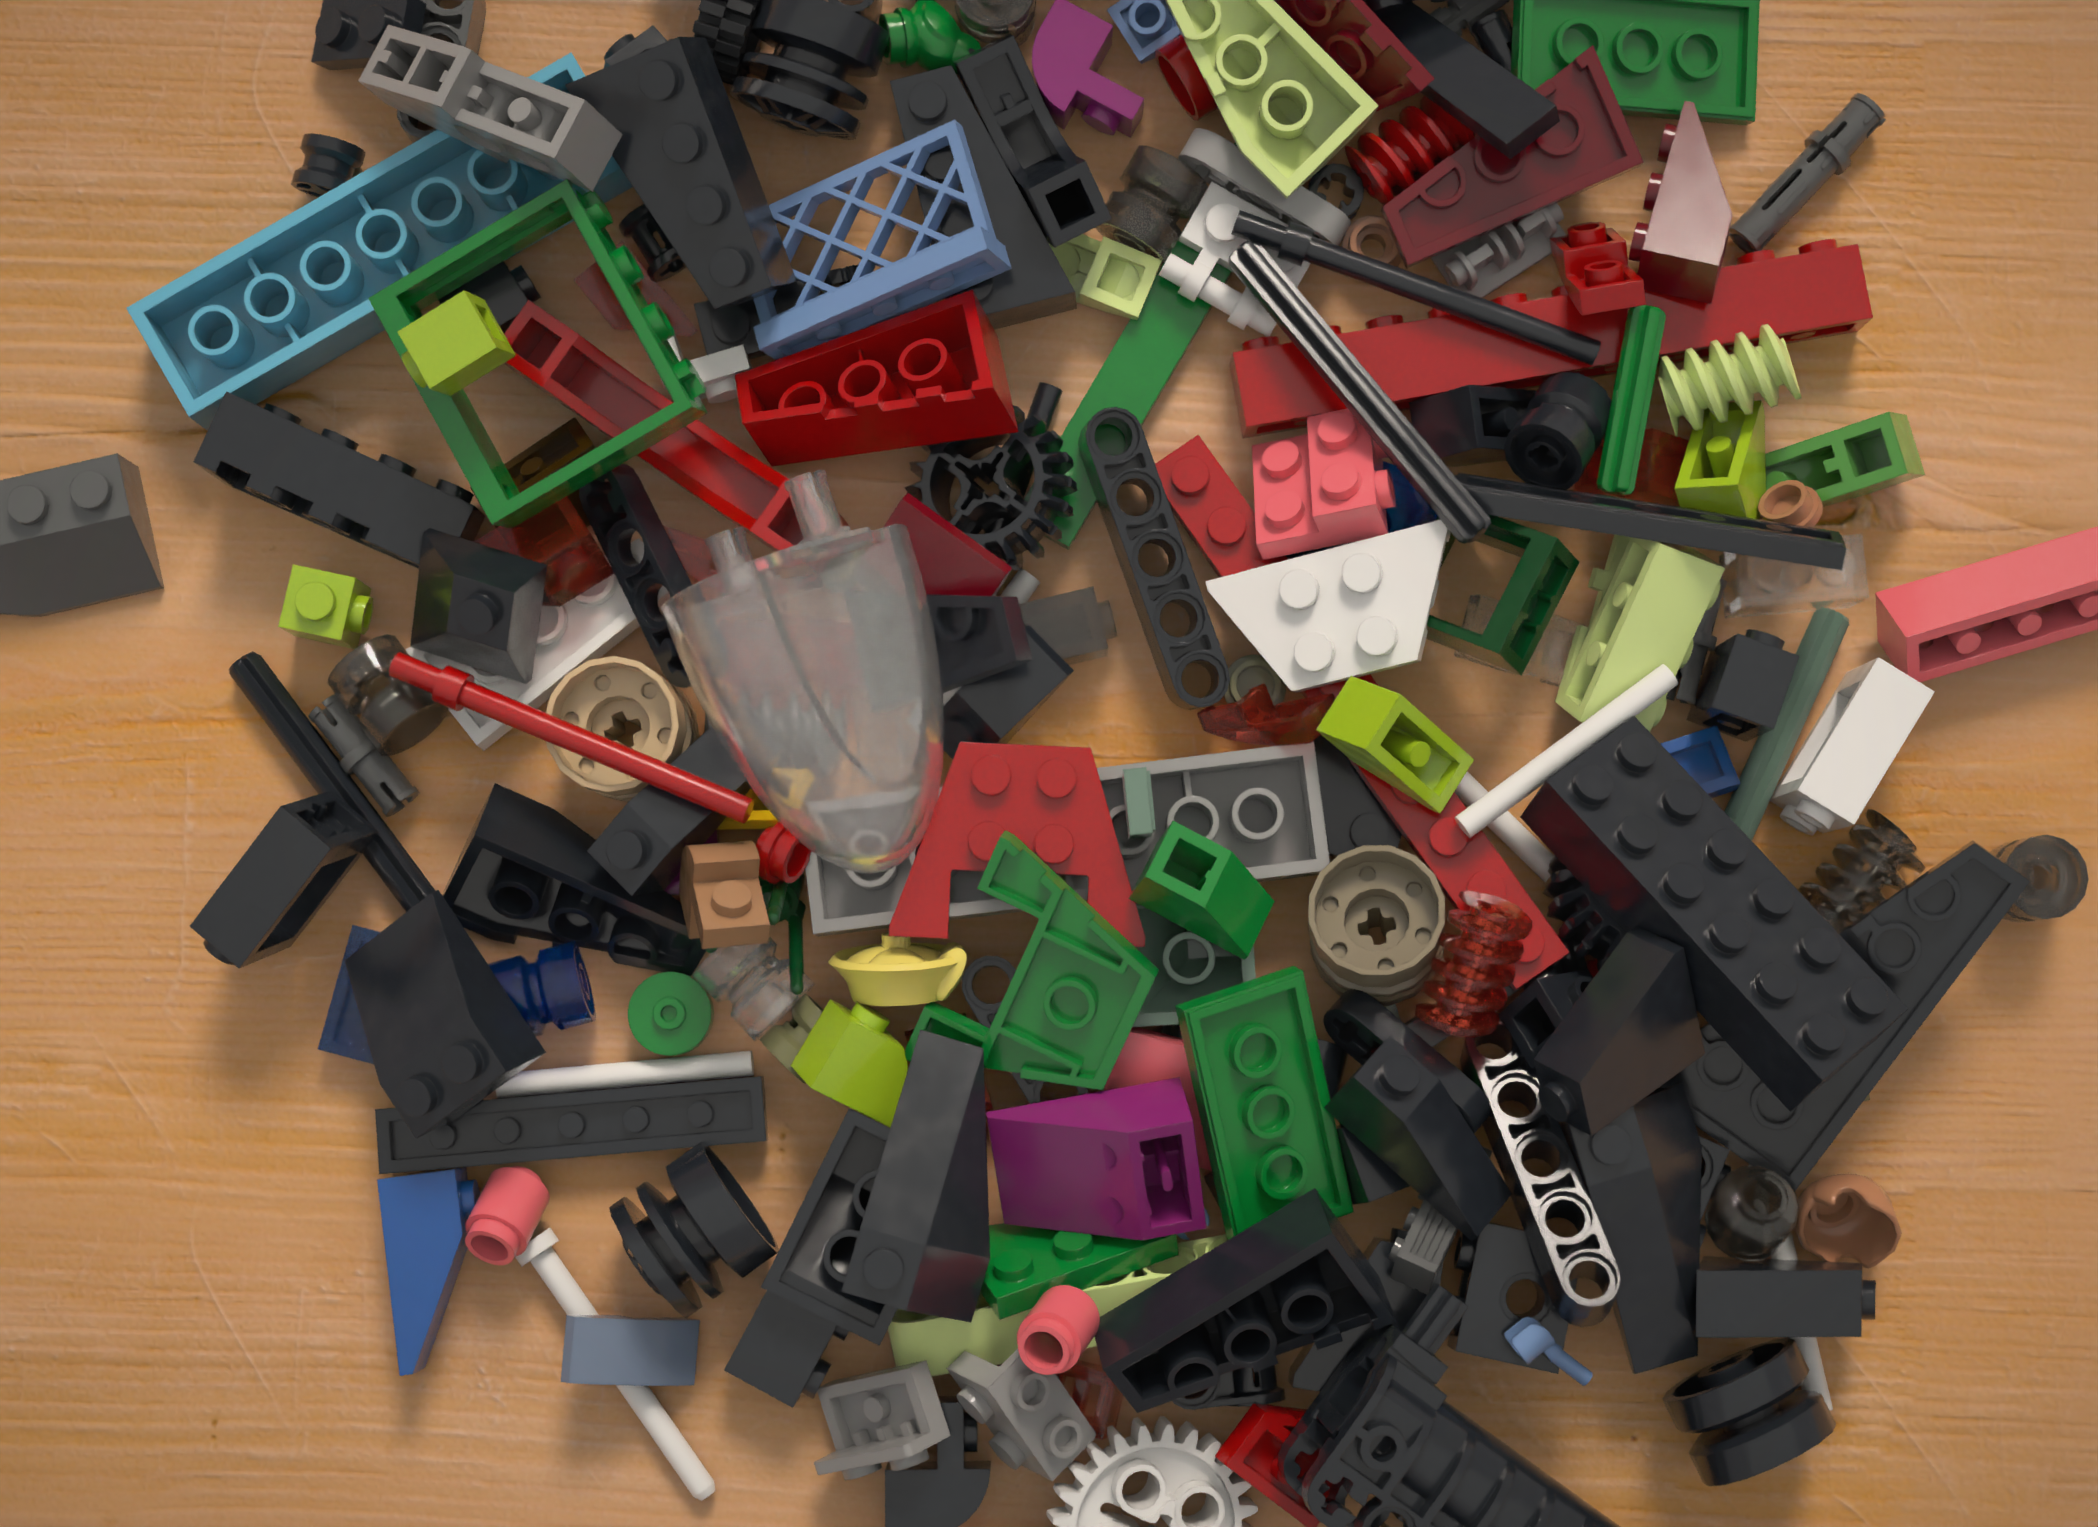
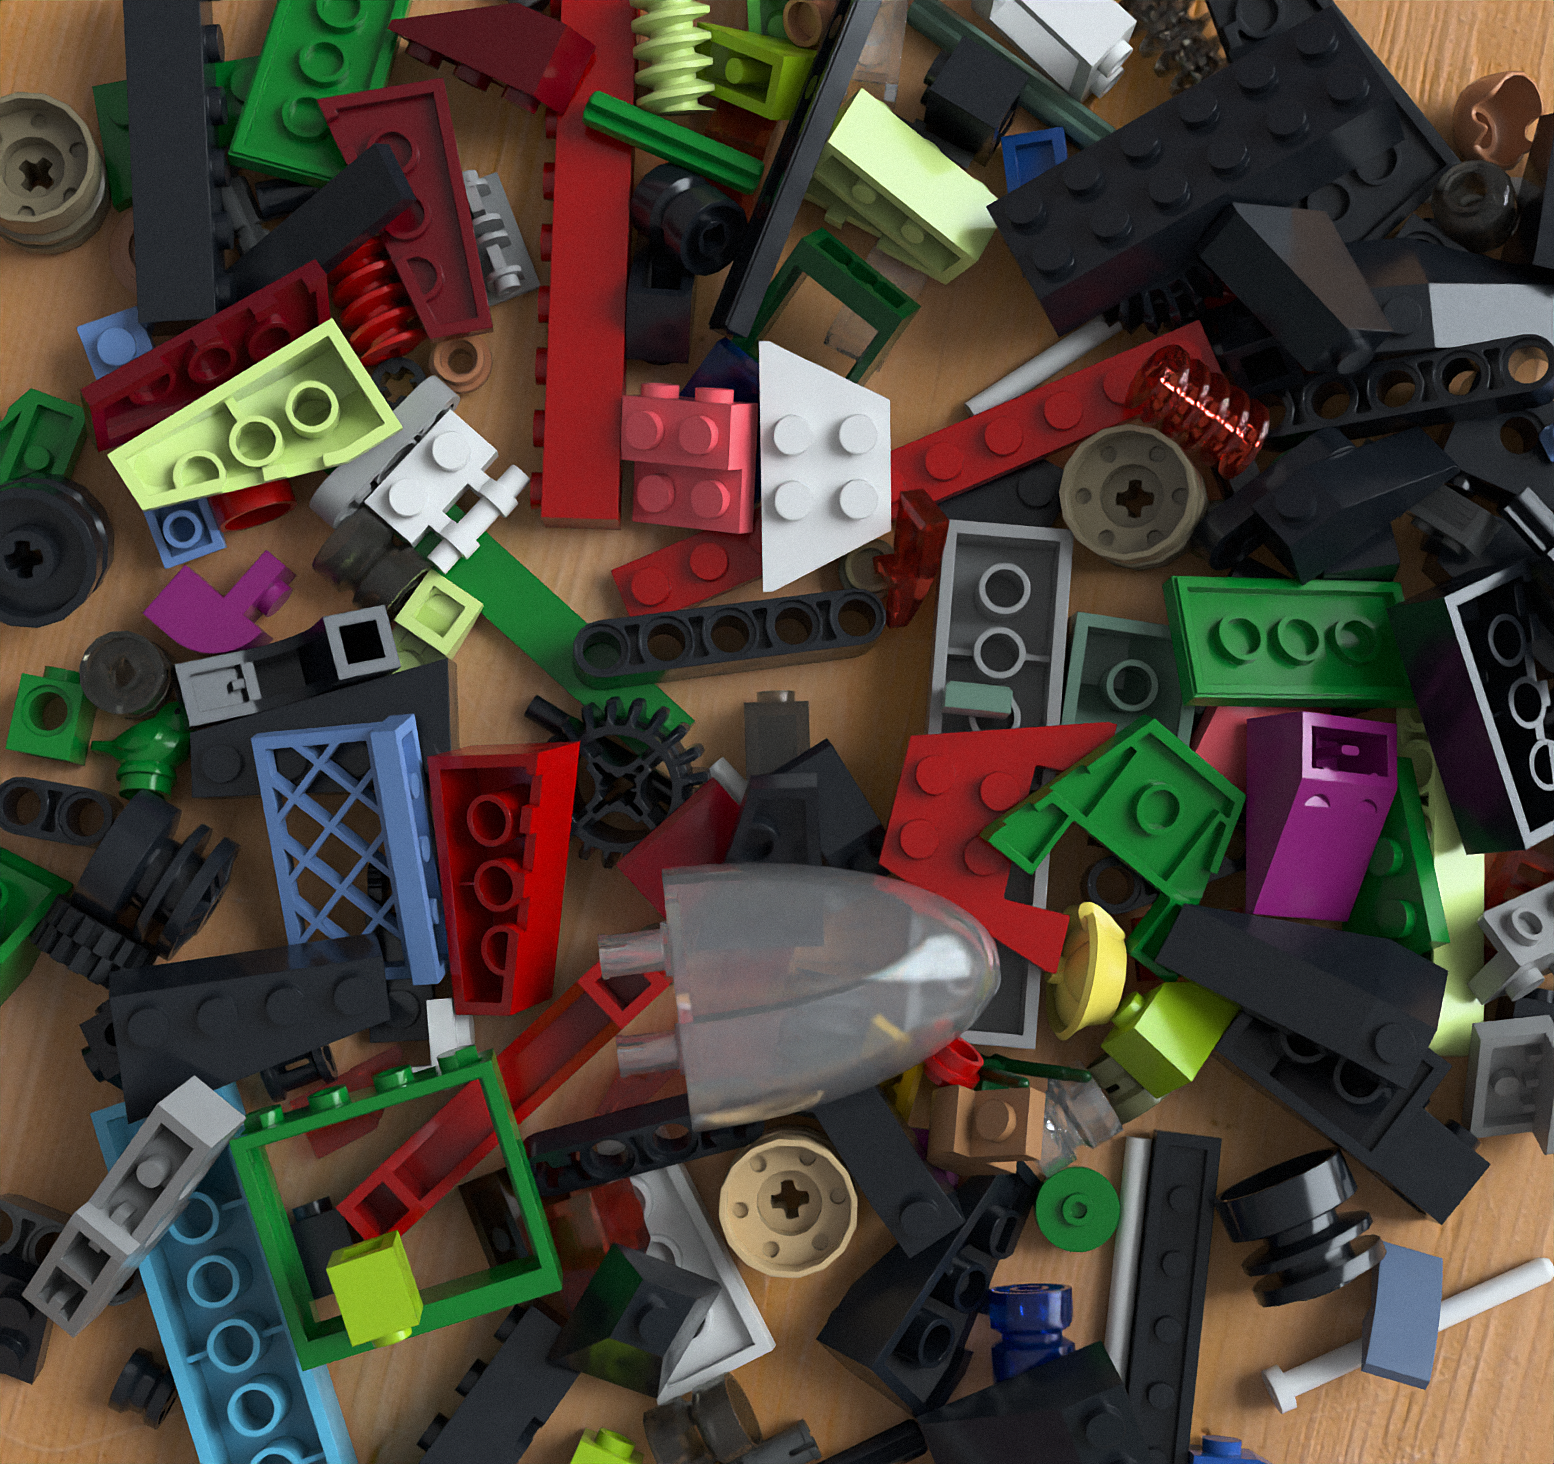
camera: 80 degrees left, 0 degrees up
(457, 690) = (721, 1357): red bar -> none
(506, 1215) = (1245, 1412): coral brick -> none
(1057, 1330) = (1476, 887): coral brick -> none
(1203, 890) = (1075, 656): green slope -> none
(1298, 245) = (449, 428): black bar -> none
(1359, 392) = (612, 399): black axle -> none
(1395, 742) = (965, 440): lime slope -> none
(1566, 750) = (1005, 279): white bar -> none
(1596, 269) = (536, 149): red slope -> none

